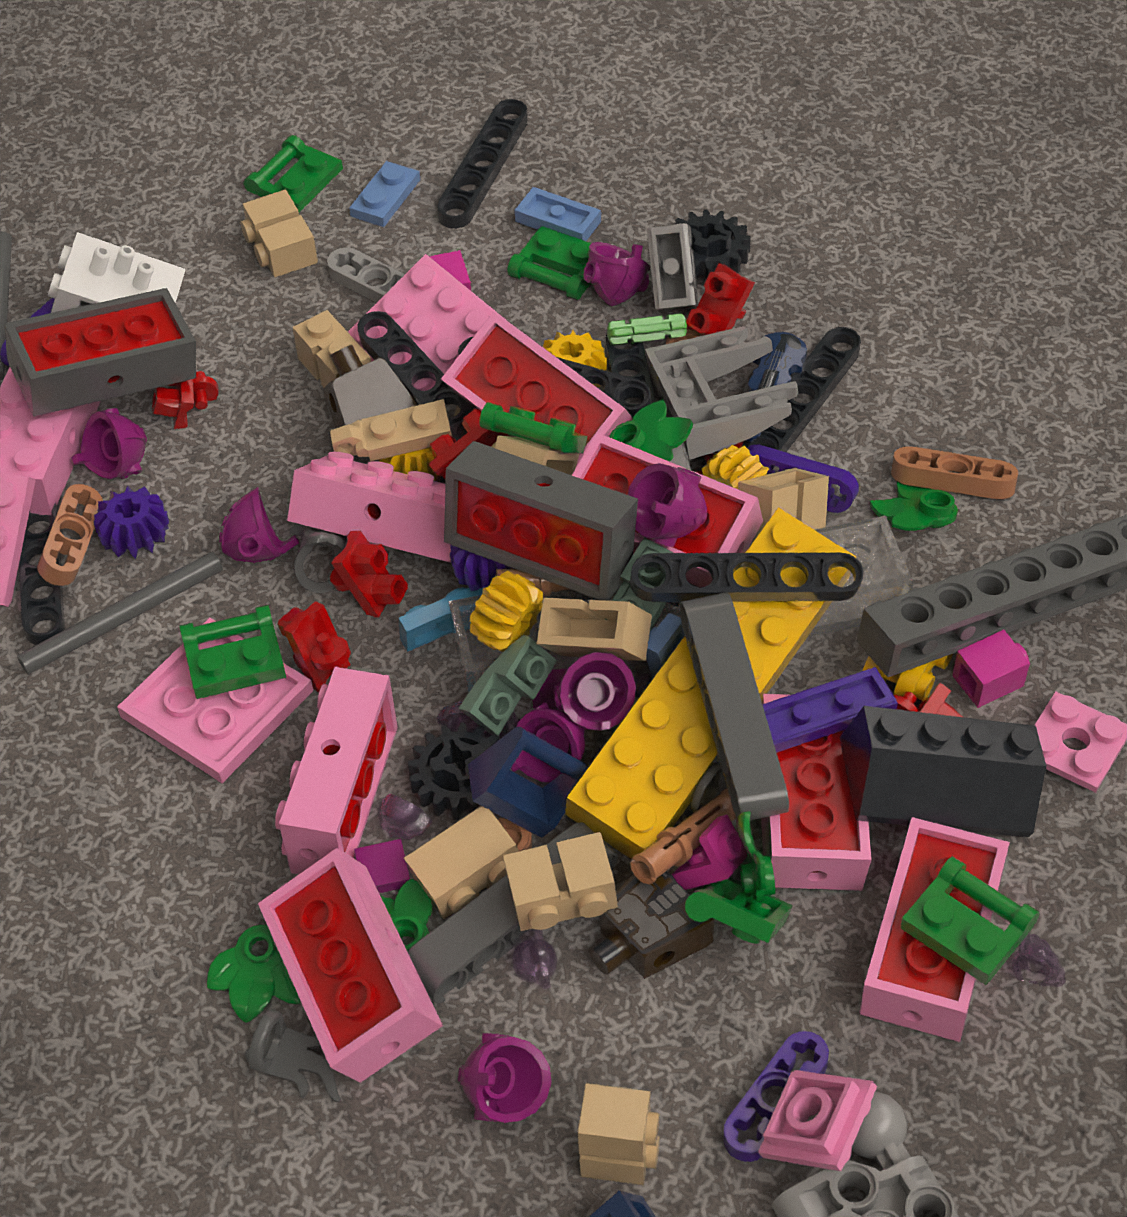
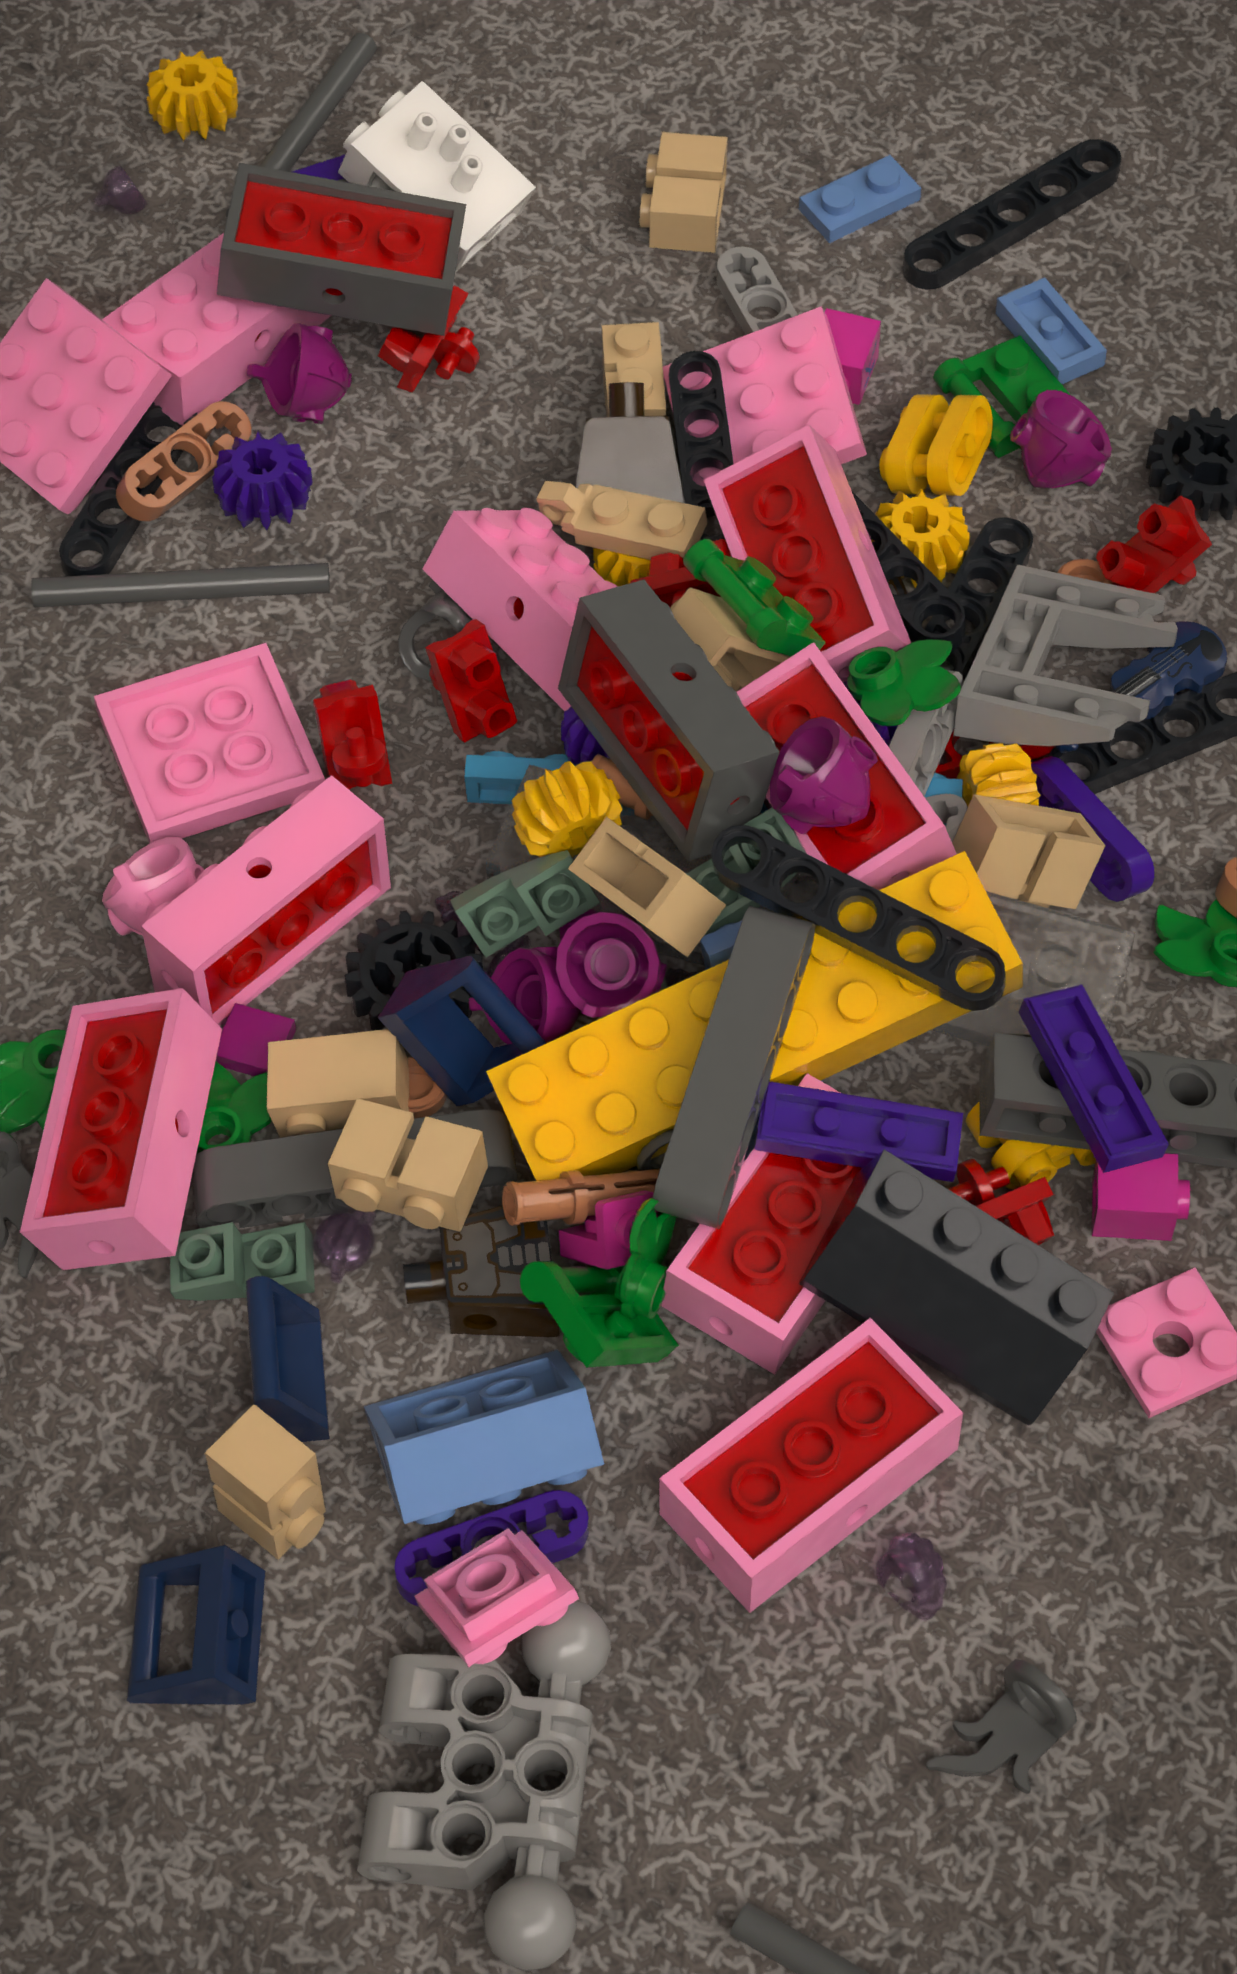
camera: 30 degrees right, 5 degrees up
(234, 663) = (252, 713): green plate -> none
(249, 534) = (373, 563): magenta helmet -> none
(249, 803) = (147, 880): none -> bright pink helmet
(302, 180) = (772, 132): green plate -> none
(402, 818) = (315, 997): clear purple piece -> none
(481, 1009) = (220, 1260): none -> sand green slope
(505, 1078) = (200, 1353): magenta helmet -> none
(527, 304) = (937, 444): none -> yellow brick
(567, 1055) = (287, 1359): none -> dark blue tile
(646, 329) = (1039, 539): bright green axle -> none
(672, 267) = (1124, 471): light grey brick -> none
(721, 1027) = (485, 1437): none -> medium blue slope
(941, 604) = (1093, 1078): none -> dark purple tile
(960, 932) = (813, 1482): green plate -> none

